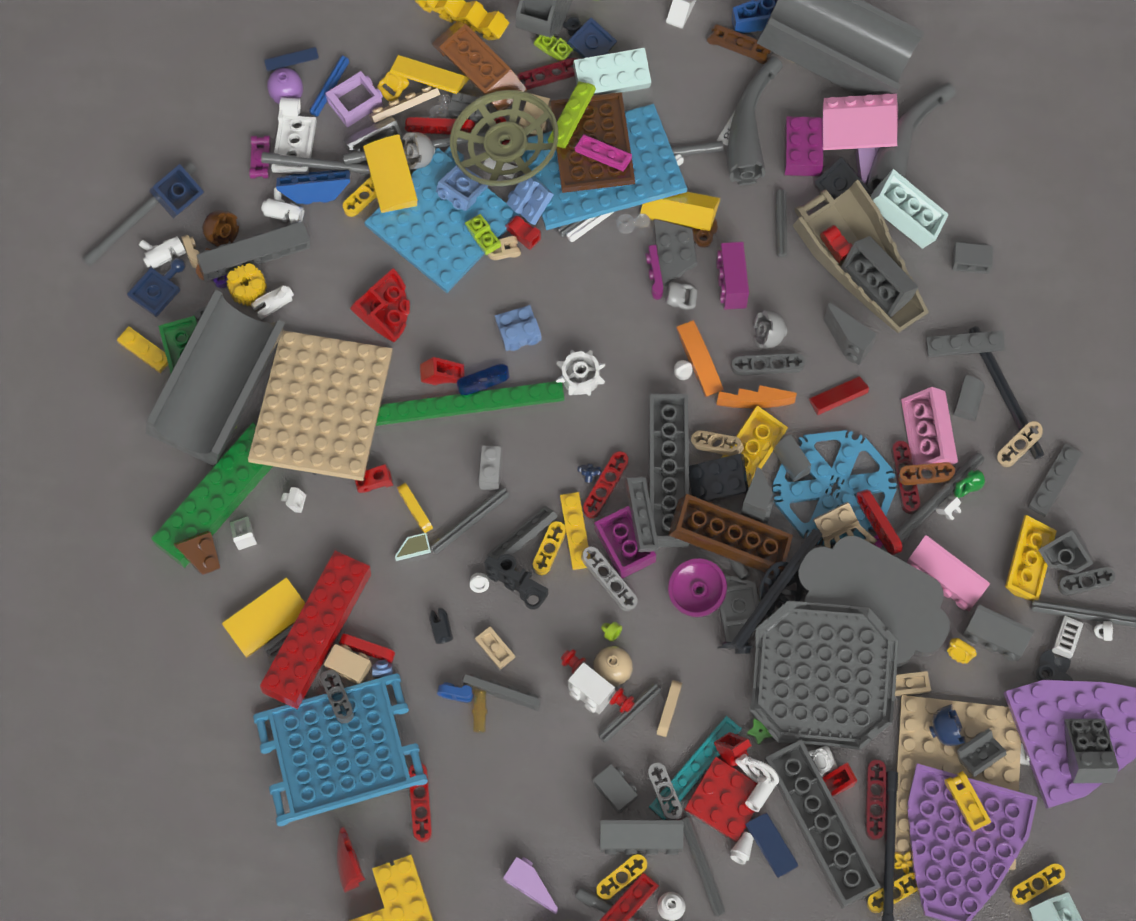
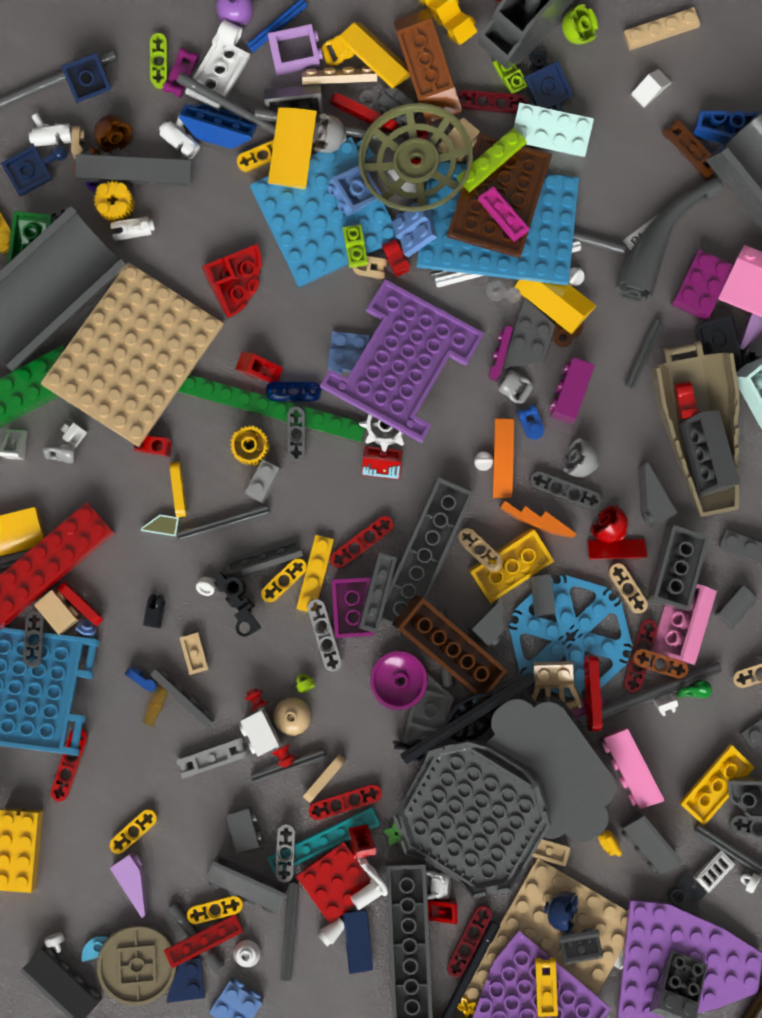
camera: 25 degrees right, 15 degrees up
(236, 148) = (163, 68): none -> lime beam
(294, 520) = (63, 453): none -> light grey piece
(455, 442) = (248, 435): none -> yellow brick
(502, 398) = (301, 447): none -> dark grey beam
(521, 826) = (126, 844): none -> yellow beam
(554, 736) = (212, 758): none -> light grey plate
(570, 309) = (403, 359): none -> medium lavender piece
(589, 471) = (351, 523): dark blue plant -> none
(592, 408) = (380, 463): none -> red panel
(691, 183) = (576, 277): none -> white tile
(698, 722) = (344, 798): none -> red beam
(714, 325) = (532, 429): none -> blue plate
(719, 478) = (465, 585): black plate -> none
(823, 374) = (610, 525): none -> red cylinder
(866, 431) = (631, 603): none -> tan beam
(900, 384) = (677, 568): none -> dark grey slope

